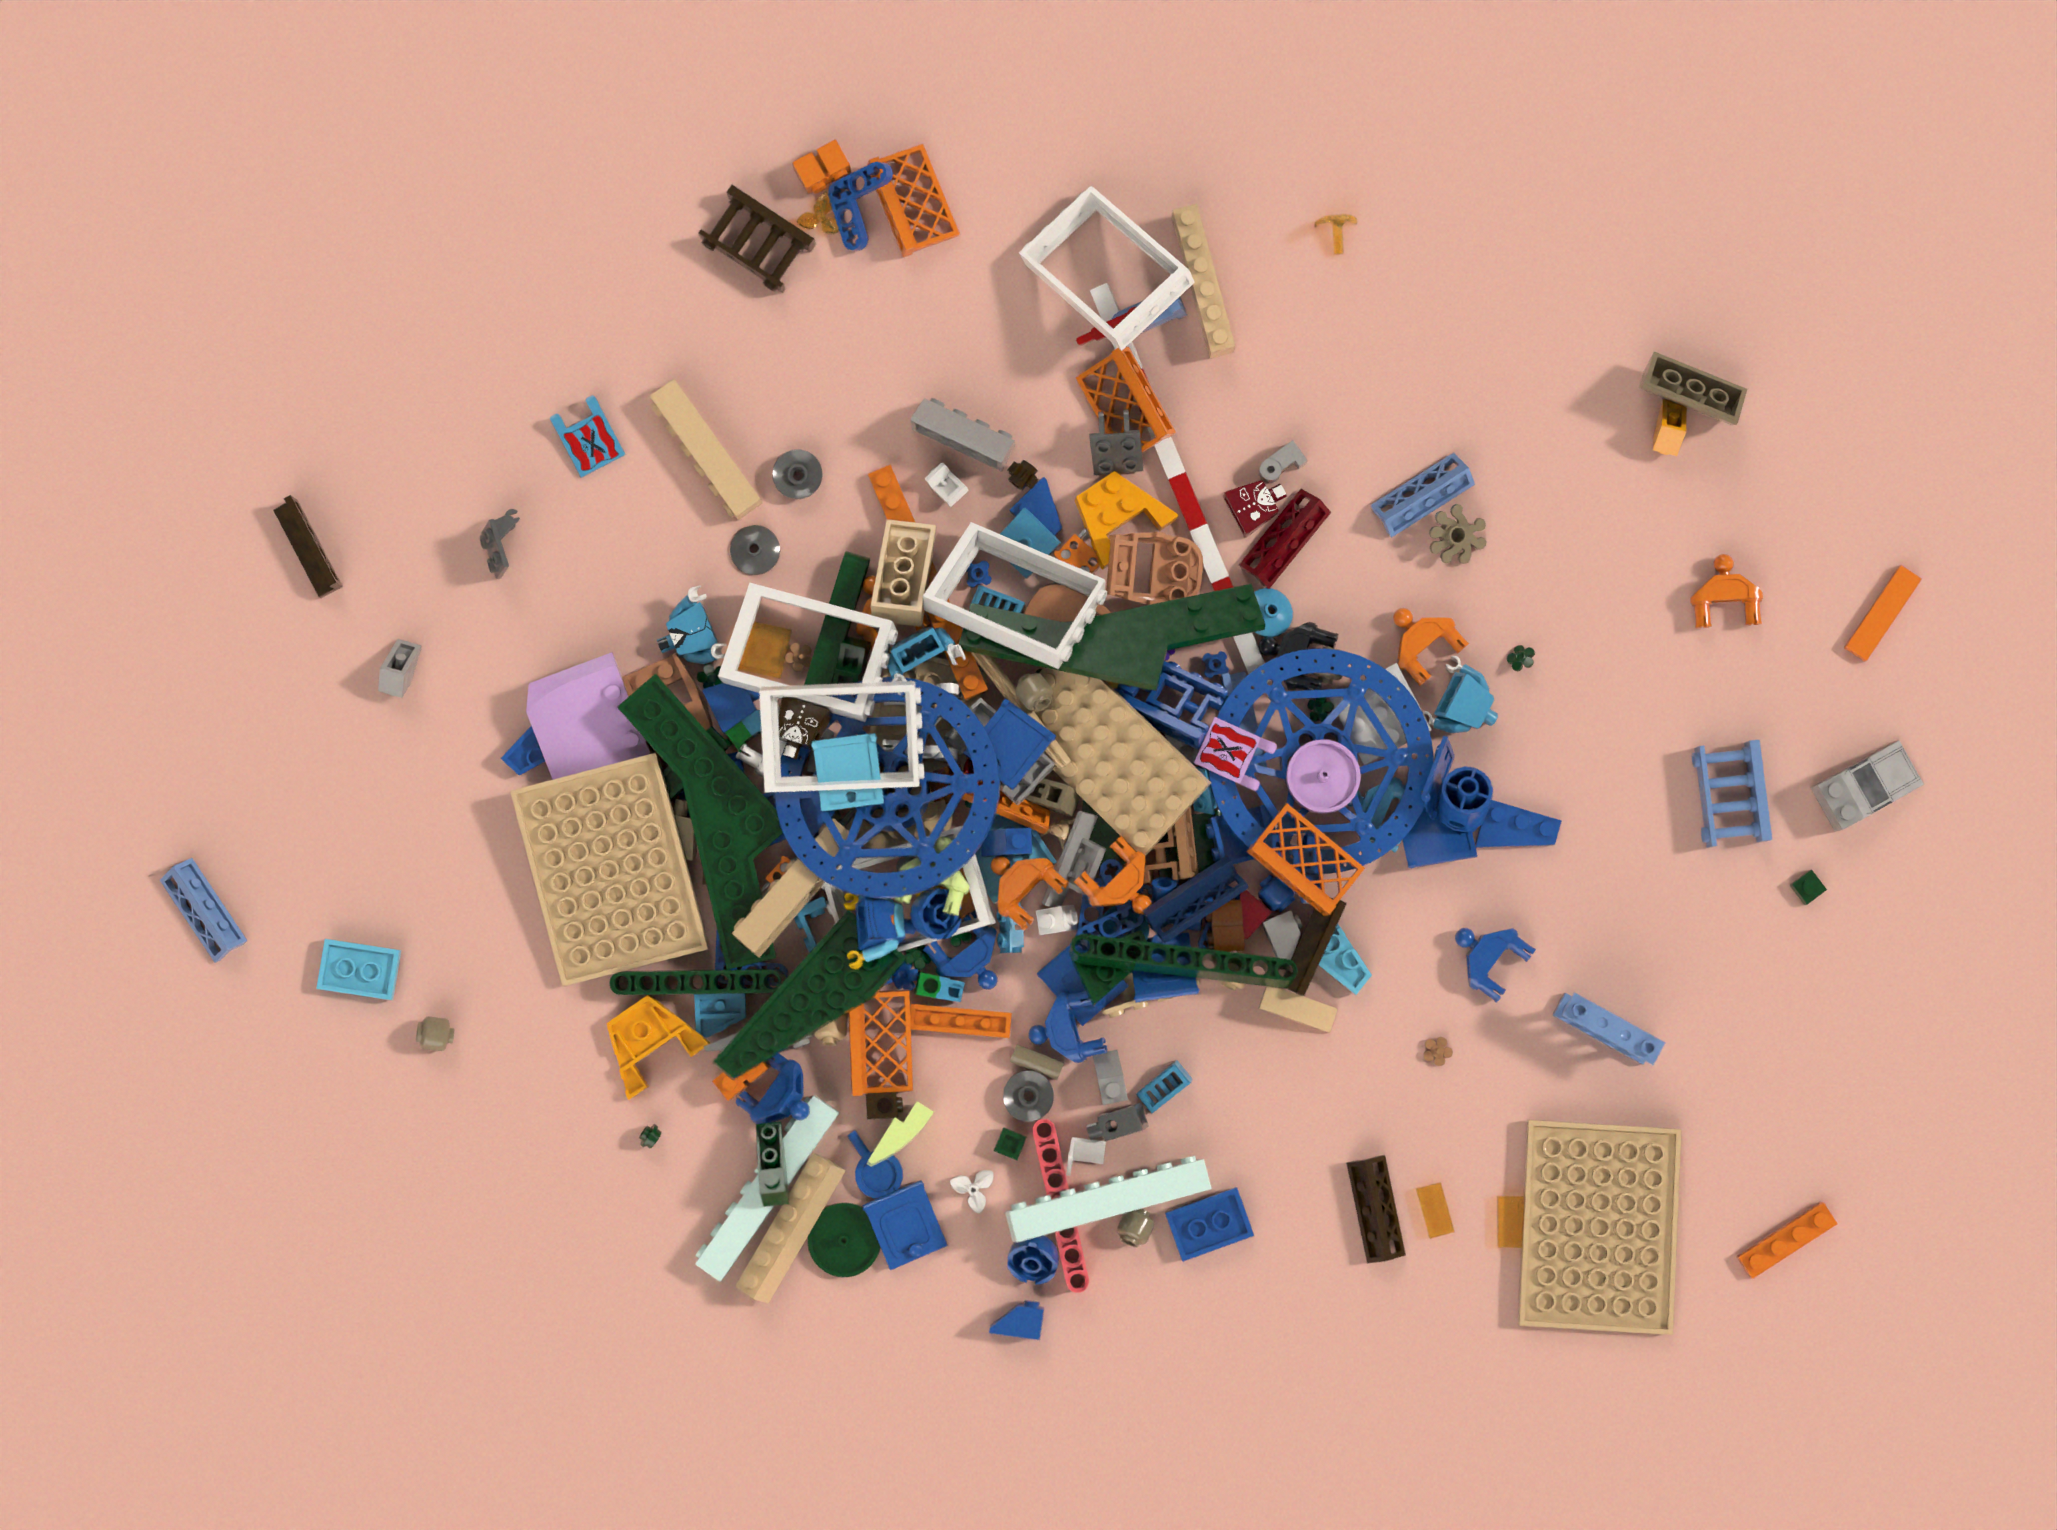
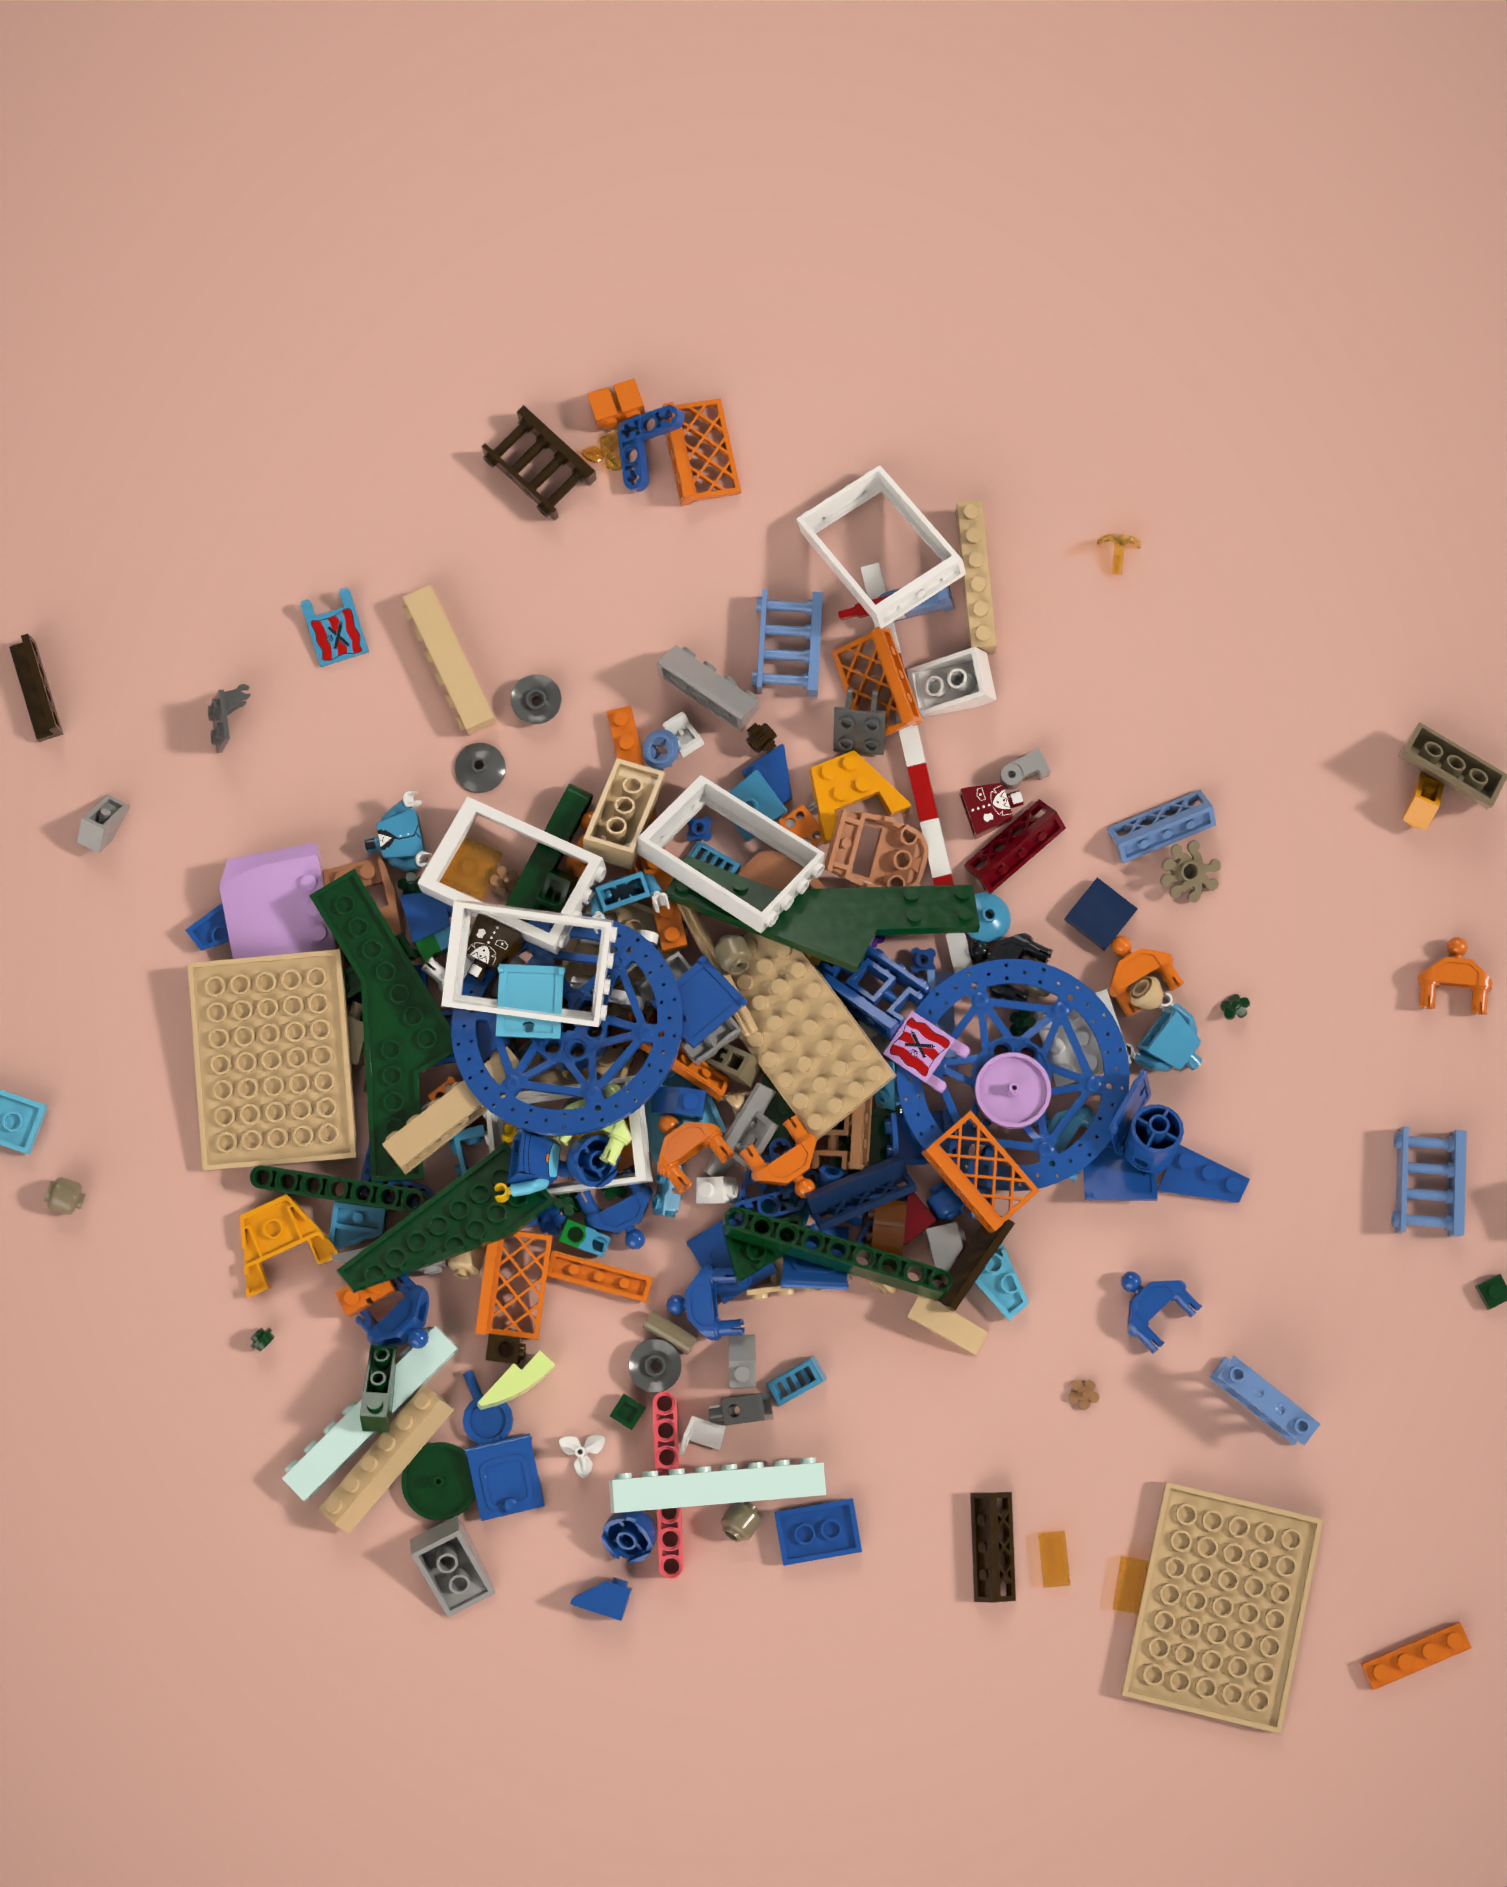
camera: 10 degrees right, 5 degrees down
(870, 1317) = (451, 1566): none -> light grey slope
(919, 508) = (655, 758): none -> medium blue gear
(1052, 362) = (809, 656): none -> medium blue fence
(1198, 389) = (952, 683): none -> white slope
(1378, 590) = (1100, 914): none -> dark blue slope
(1435, 660) = (1146, 993): none -> tan cone

